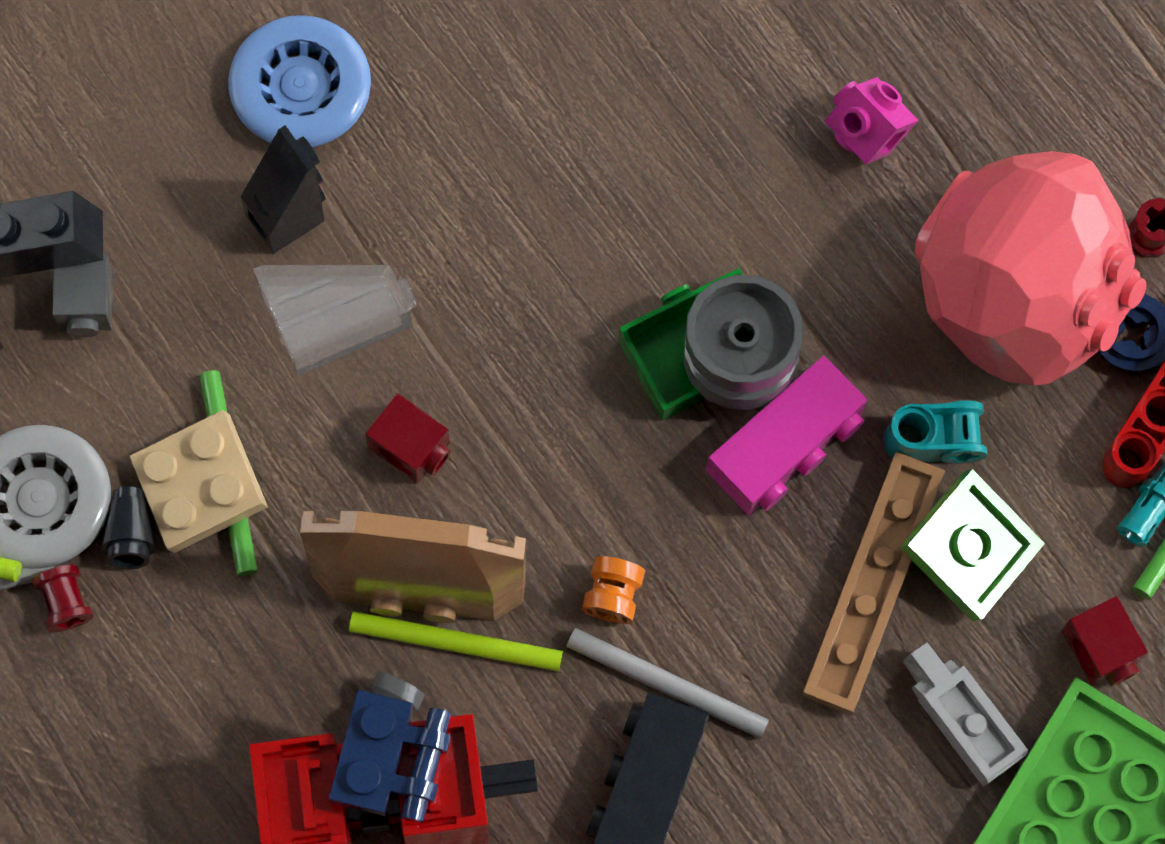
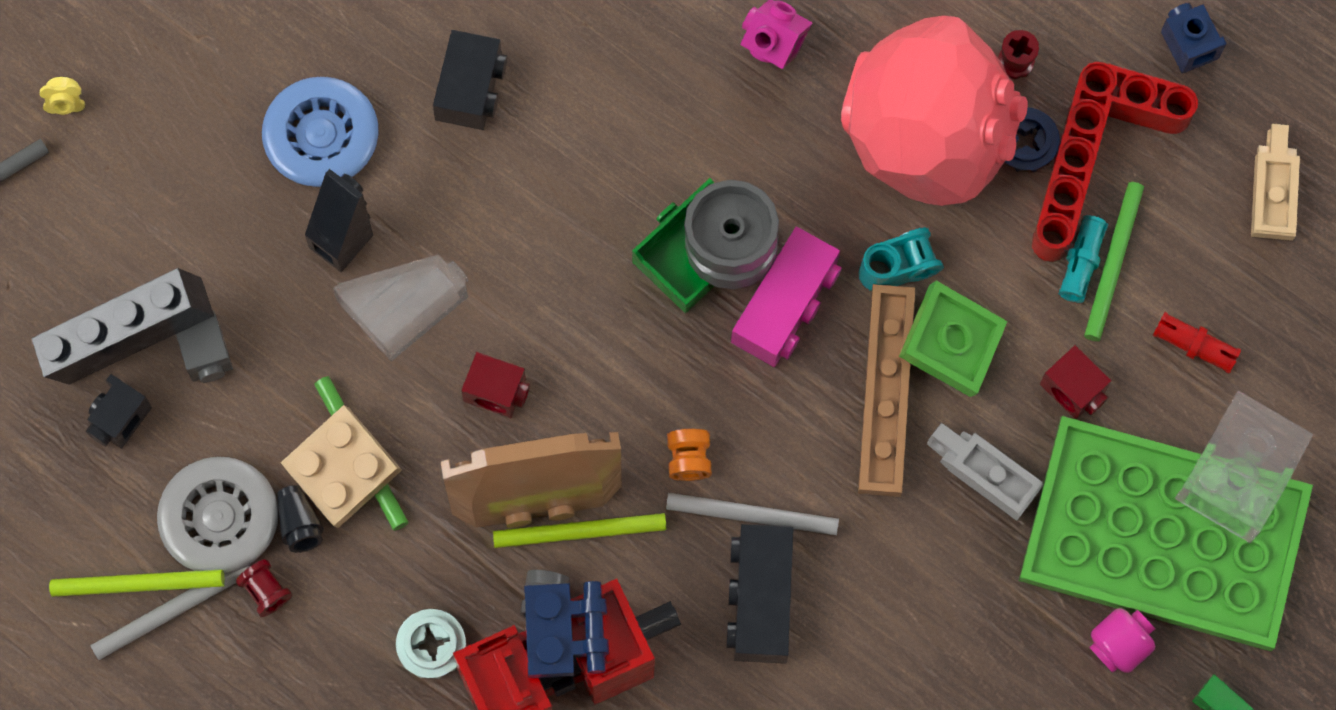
camera: 15 degrees left, 0 degrees up
(221, 705) = (413, 634): none -> light aqua gear
(491, 71) = (468, 80): none -> black brick

